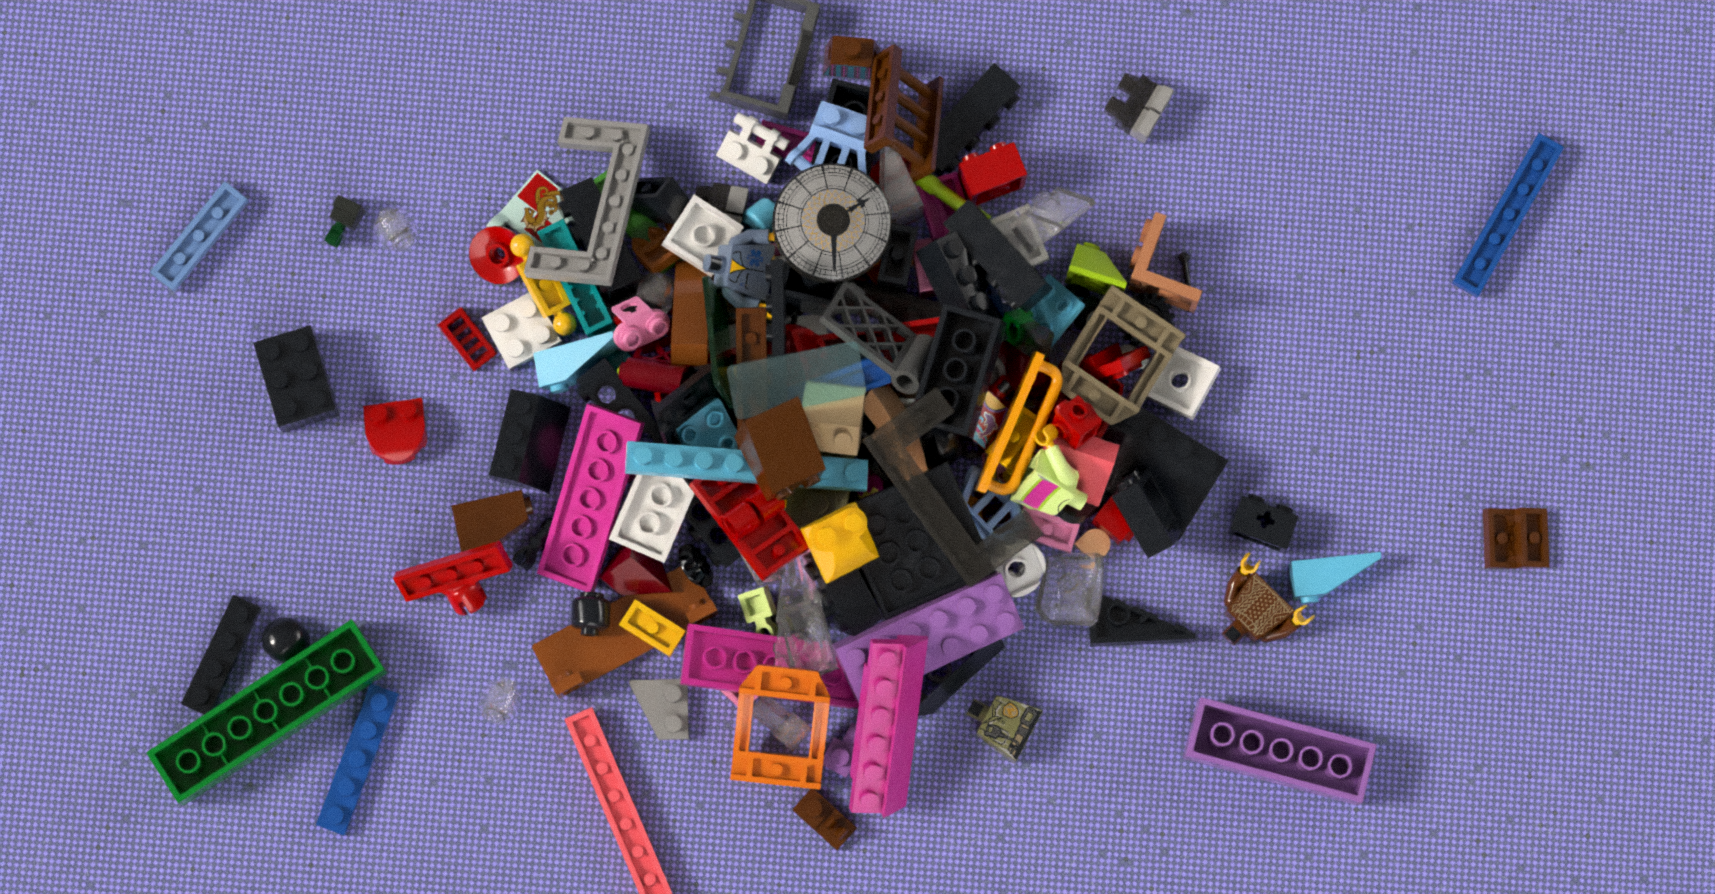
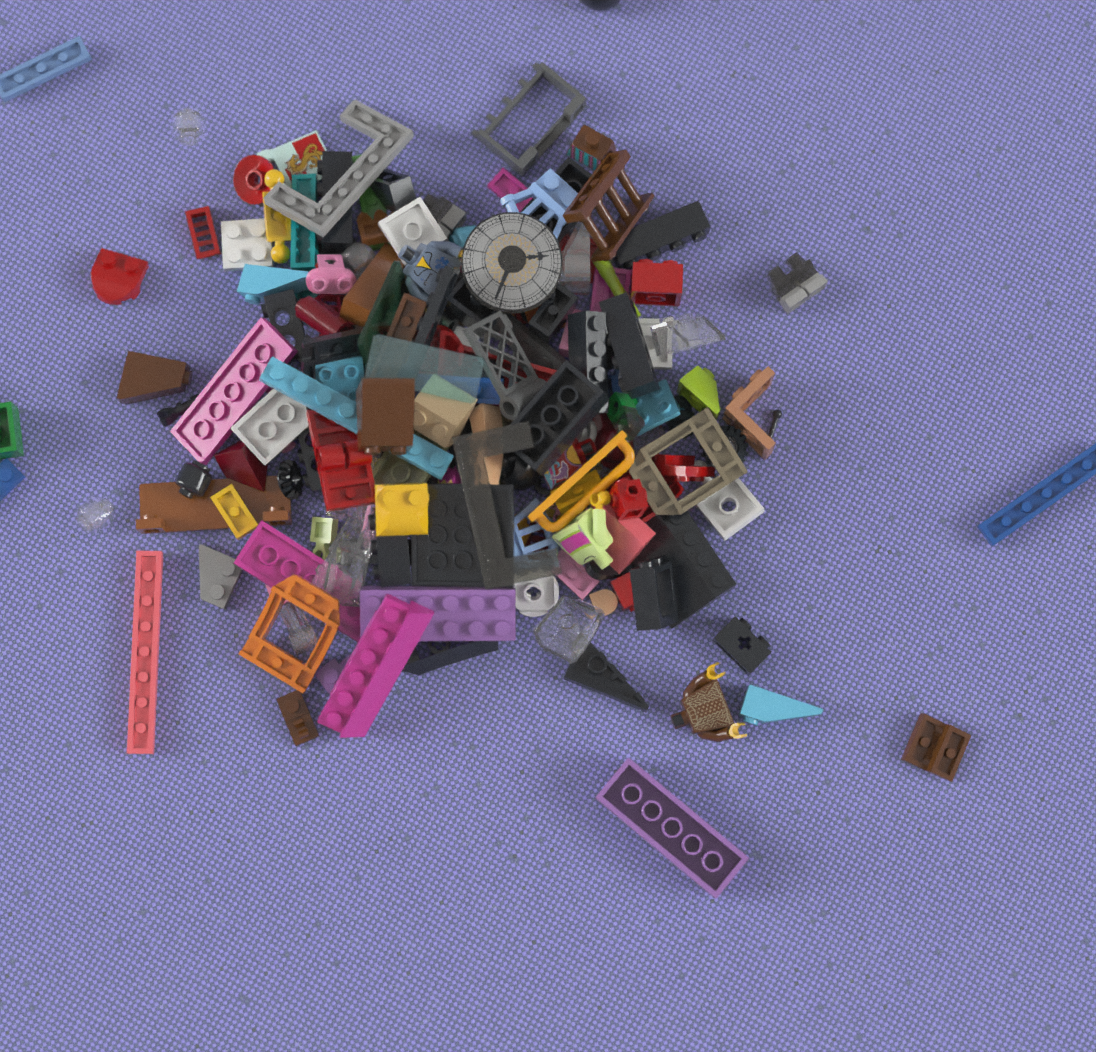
camera: 30 degrees right, 0 degrees up
(296, 379) = (61, 205): black brick -> none
(344, 214) = (157, 100): pearl dark grey piece -> none
(455, 576) = (105, 405): red plate -> none
(529, 441) = (211, 329): black slope -> none
(749, 155) = (479, 188): white plate -> none
(1005, 724) = (469, 709): torso -> none

